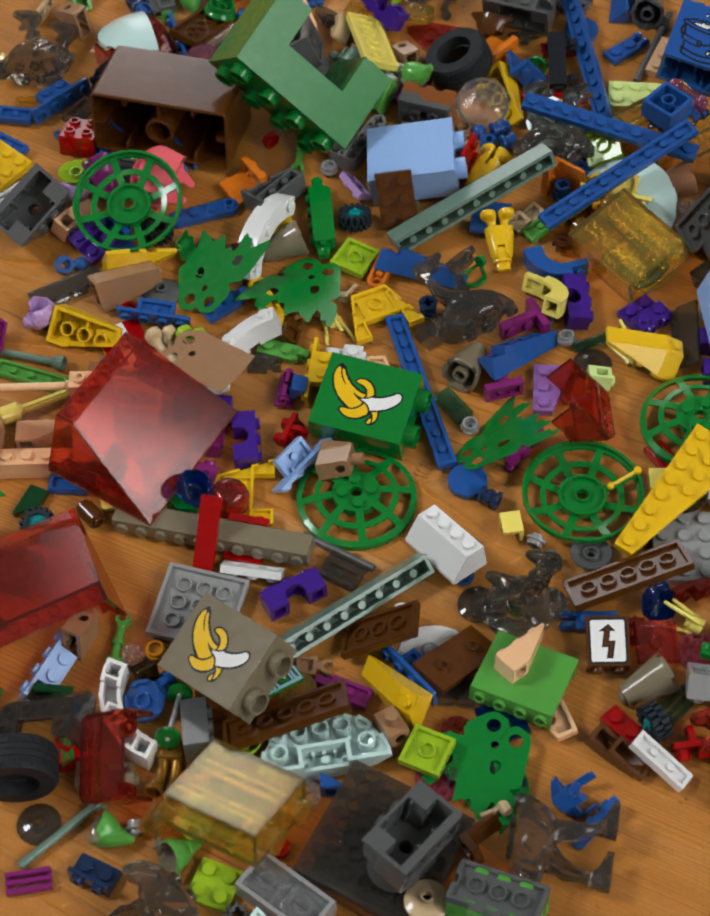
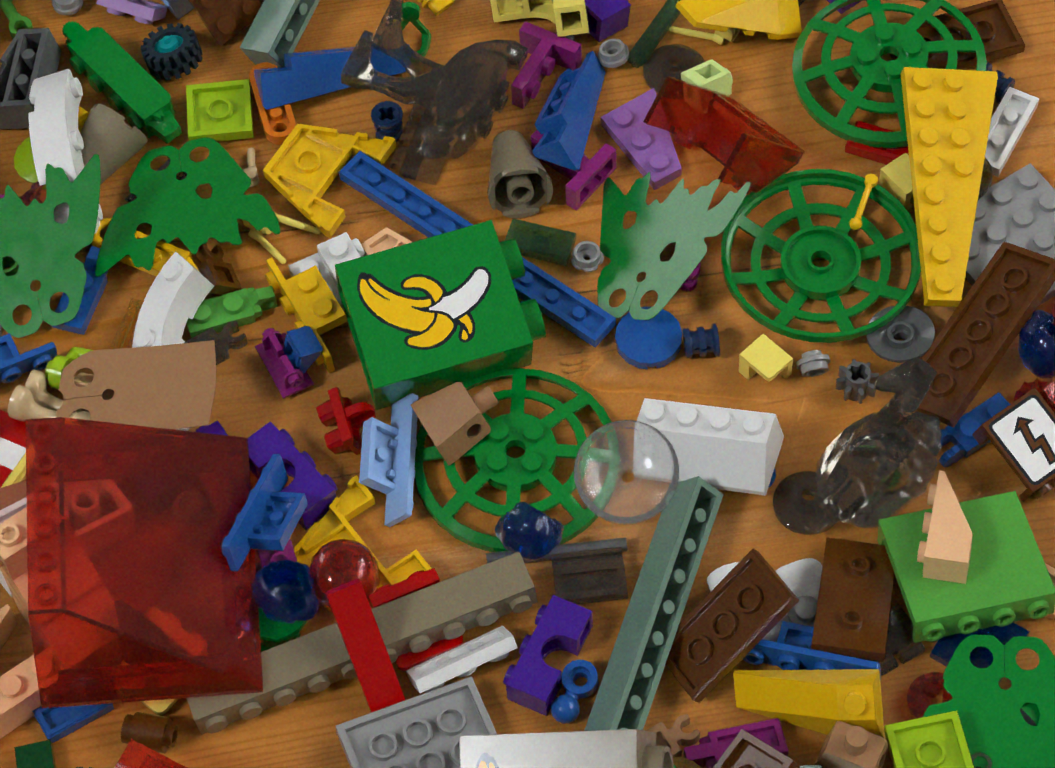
camera: 35 degrees left, 5 degrees up
(212, 448) = (266, 517): none -> blue bracket
(282, 622) = (566, 707): none -> blue plate
(326, 531) = (529, 532): none -> clear blue hair
(391, 523) = (621, 449): none -> clear dish

